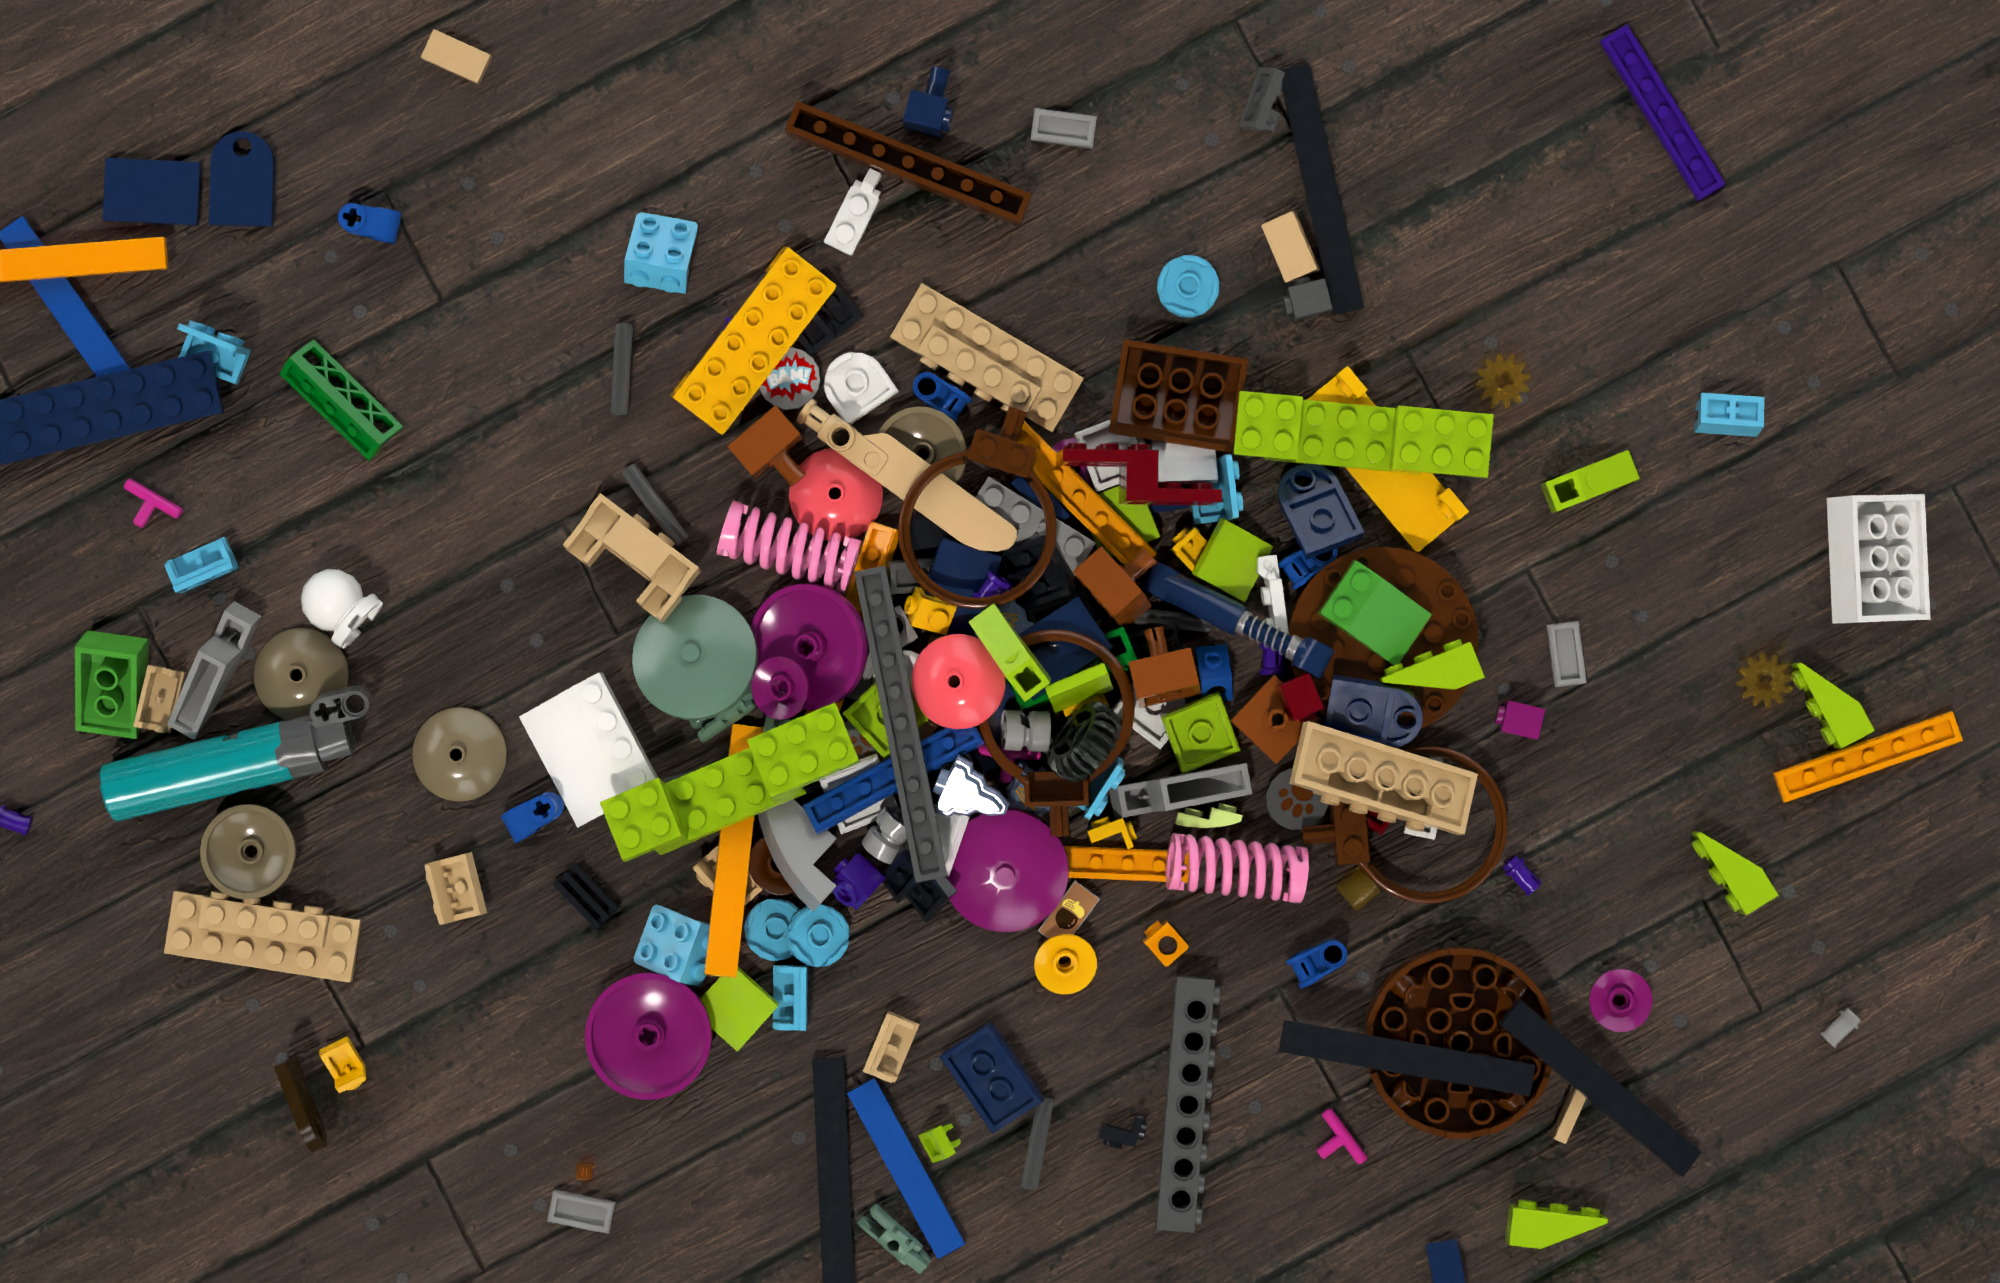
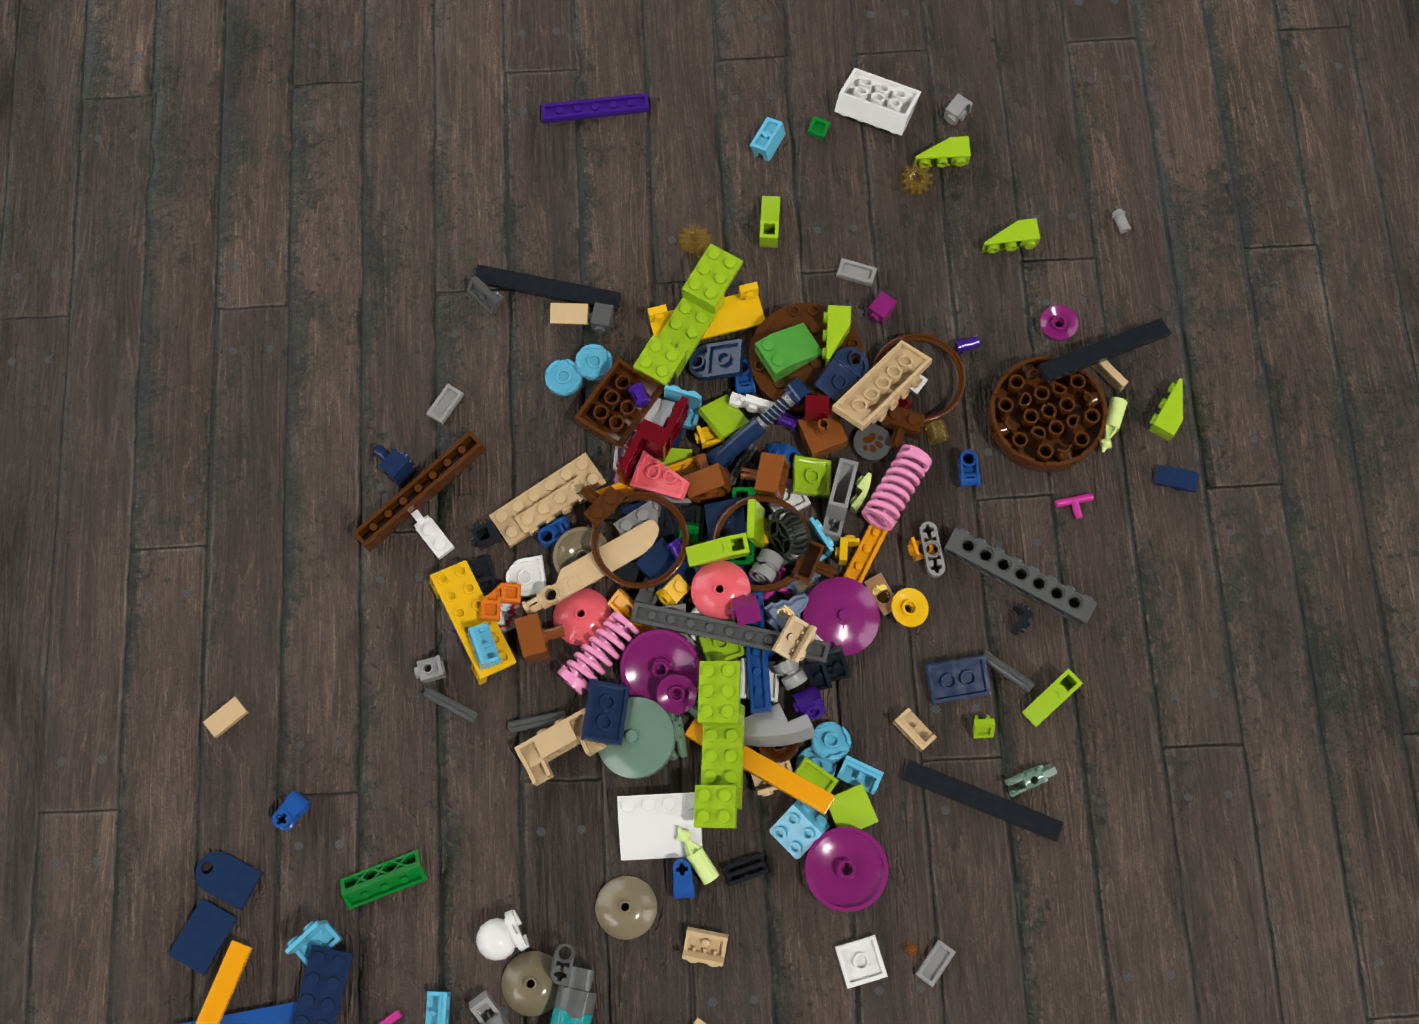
camera: 65 degrees left, 15 degrees down
(536, 1109) = (861, 961): none -> white tile
(568, 823) = (697, 857): none -> yellowish green wheel
(660, 252) = (397, 651): medium azure bracket -> none
(665, 323) = (437, 669): none -> light grey brick
(705, 600) = (605, 713): none -> dark blue tile
(719, 381) = (484, 646): none -> medium azure hinge
(758, 937) = (816, 775): none -> lime tile
(788, 357) = (503, 594): none -> orange tile
(900, 298) = (485, 529): none -> black brick
(906, 1168) = (990, 753): blue tile -> none
(926, 825) = (795, 639): none -> tan bracket
(941, 733) = (746, 610): none -> magenta brick
(1025, 1223) = (1052, 697): none -> lime slope
(1032, 598) = (693, 529): none -> green tile
(1083, 511) = (658, 479): none -> coral wing
(1193, 951) = (934, 535): none -> light grey beam
(1199, 422) = (639, 395): none -> dark purple bush
(1231, 321) = (593, 362): none -> medium azure tile
(1406, 1057) = (1044, 441): black tile -> none
(1503, 1144) = (1113, 421): none -> yellowish green wheel
(1788, 485) = (818, 128): none -> green tile
(1867, 756) = (980, 150): light orange tile -> none
(1917, 692) = (957, 109): none -> light grey brick

